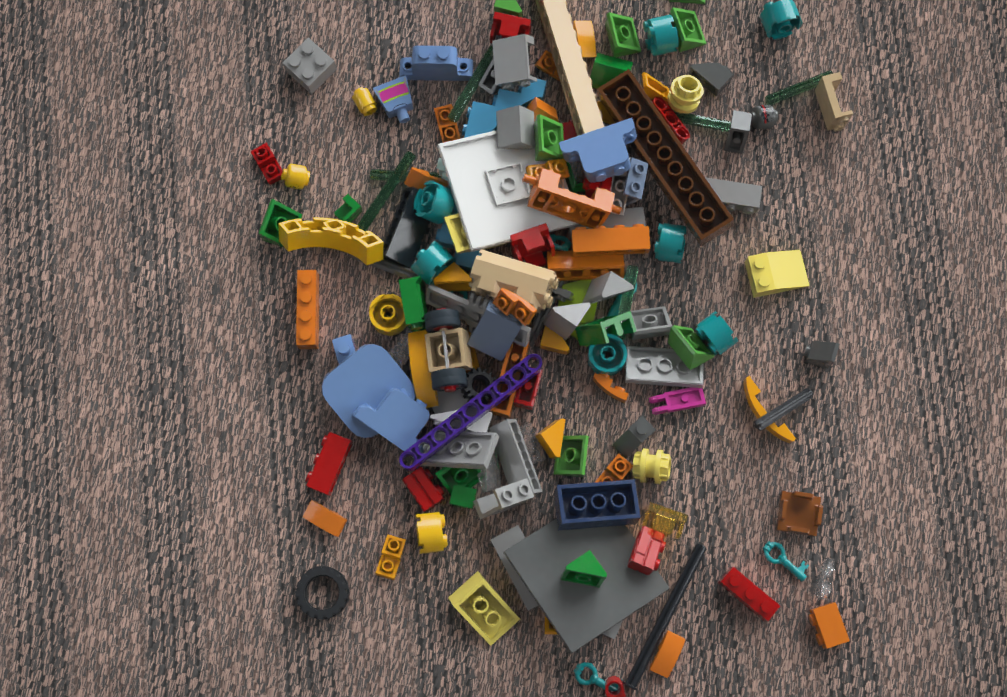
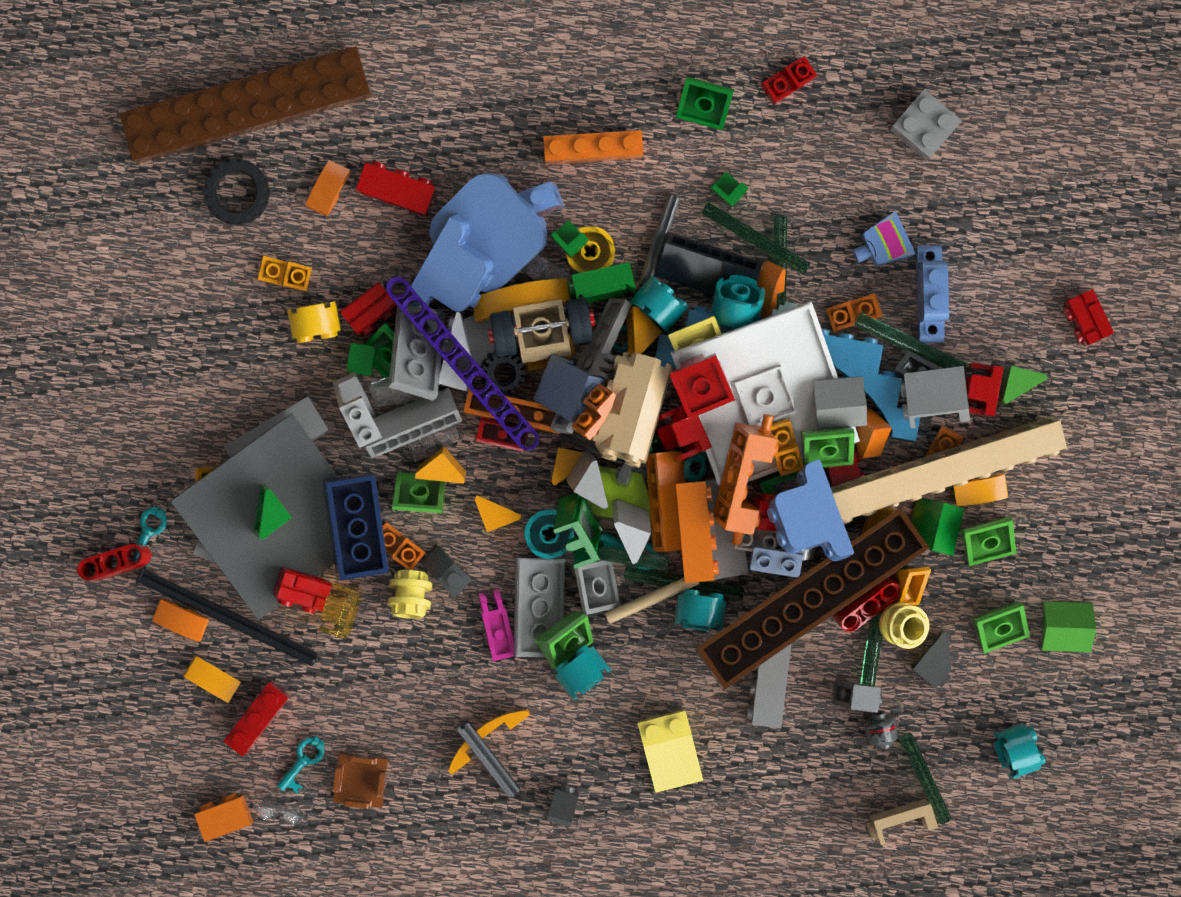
camera: 85 degrees right, 10 degrees up
(253, 582) = (245, 105): none -> reddish brown brick
(295, 176) = (771, 118): yellow head -> none
(331, 234) = (692, 173): yellow brick -> none
(364, 101) = (879, 201): yellow brick -> none
(378, 325) = (569, 238): none -> green panel
(483, 608) = (226, 392): light yellow slope -> none
(497, 225) = (701, 385): none -> red panel
(591, 398) = (494, 515): none -> light orange slope
(604, 383) = (513, 533): orange slope -> none
(648, 259) = (664, 579): none -> clear green axle
(660, 282) = (648, 600): none -> tan piece
(661, 35) = (986, 591): teal brick -> none
(716, 630) = (211, 679): none -> light orange slope

